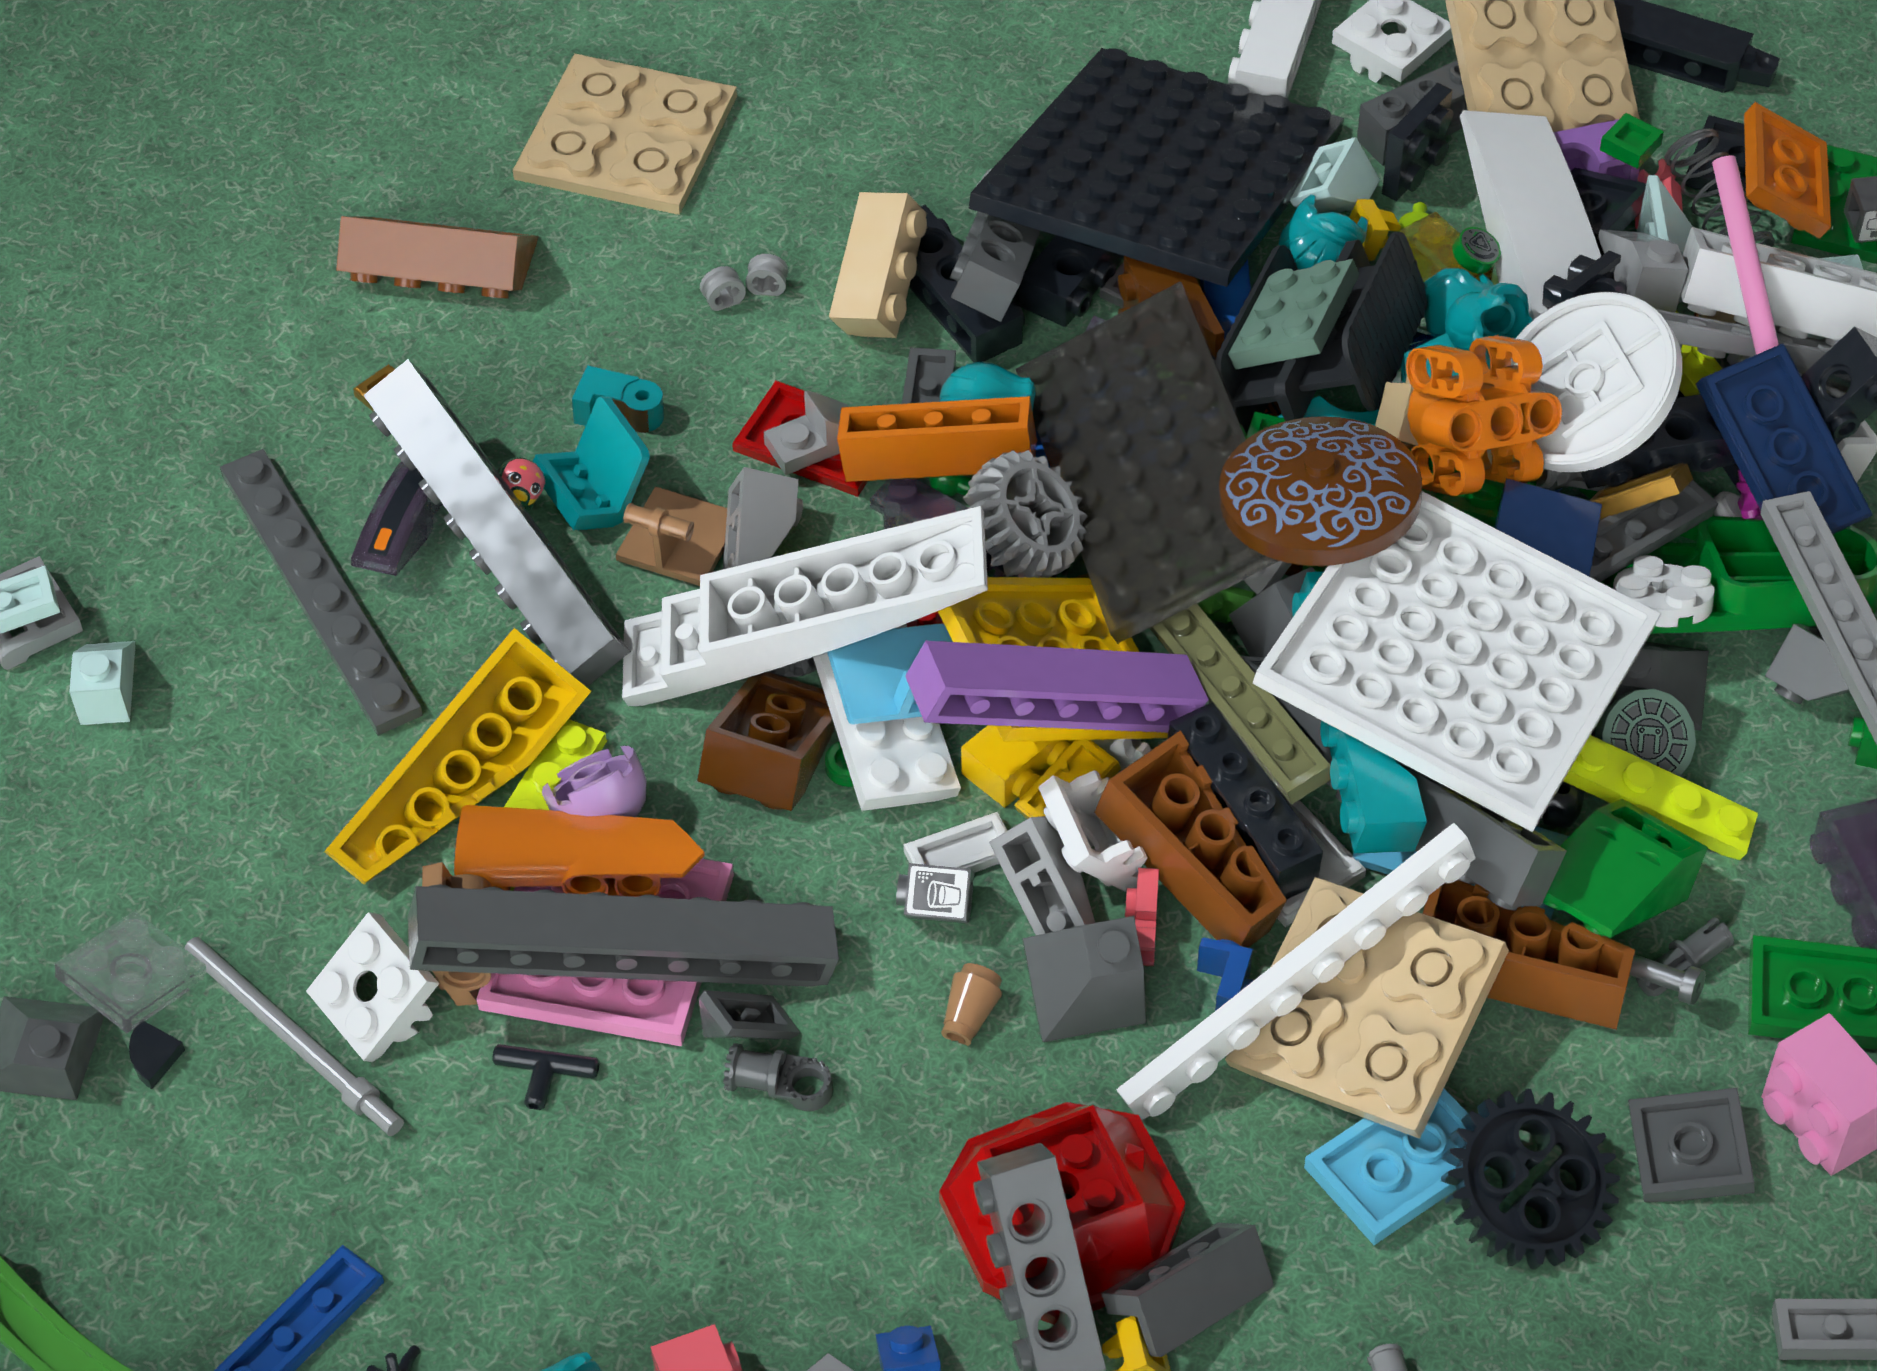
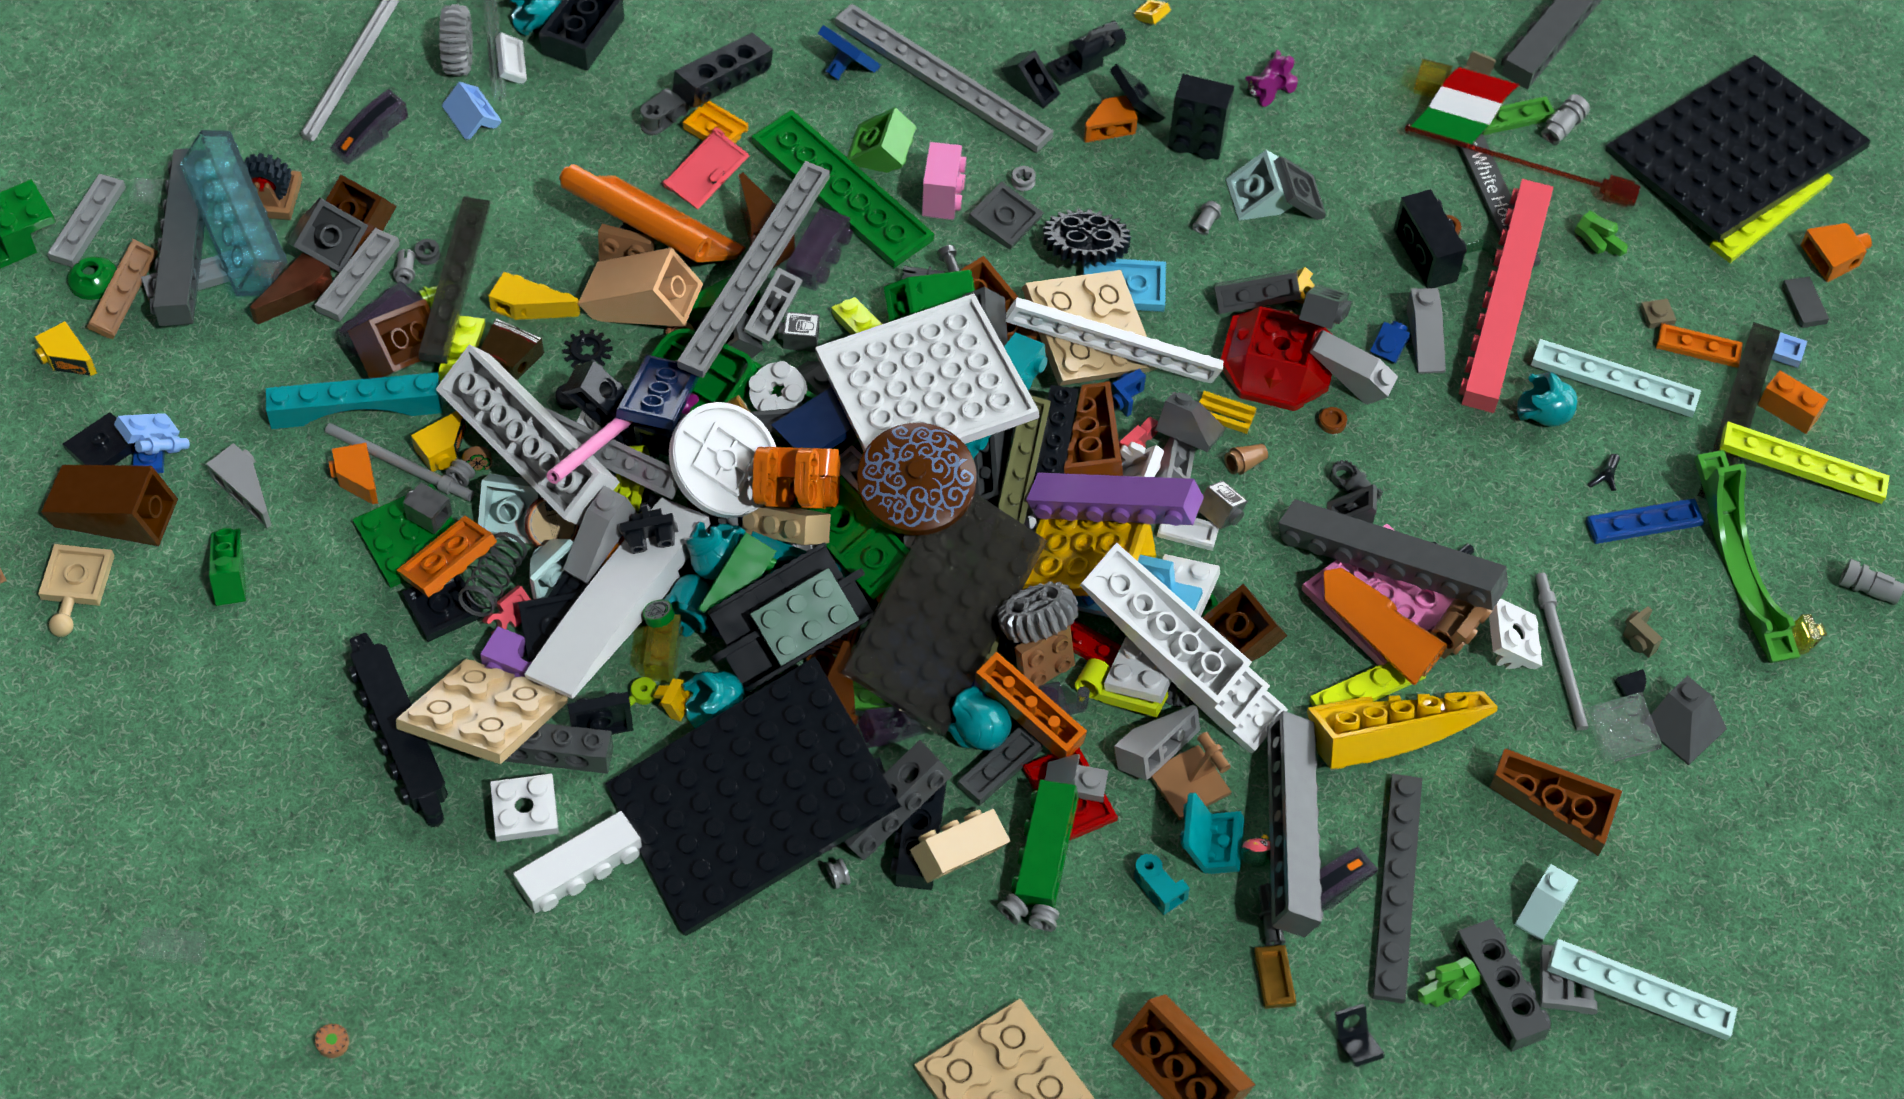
camera: 145 degrees left, 5 degrees up
(105, 547) = (1516, 1029): none -> dark grey brick
(165, 527) = (1449, 982): none -> bright green rock
(167, 799) = (1559, 798): none -> dark orange wedge
(181, 1124) = (1640, 634): none -> dark tan bracket
(242, 386) = (1357, 1041): none -> black bracket
(600, 786) = (1344, 653): lavender cylinder -> none
(782, 340) = (1046, 843): none -> green brick
(895, 1167) = (1332, 420): none -> dark orange tile
(908, 1229) = (1358, 370): none -> light grey slope
(1097, 1035) = (1230, 409): none -> yellow tile
(1337, 177) = (669, 725): light aqua slope -> none
(1422, 302) = (744, 565): none -> green slope
(1631, 140) = (502, 625): green plate -> none
(1745, 1253) = (1028, 173): none -> light grey bush
(1750, 742) = (800, 331): none -> flat silver brick
(1818, 725) = (773, 305): none -> light grey slope

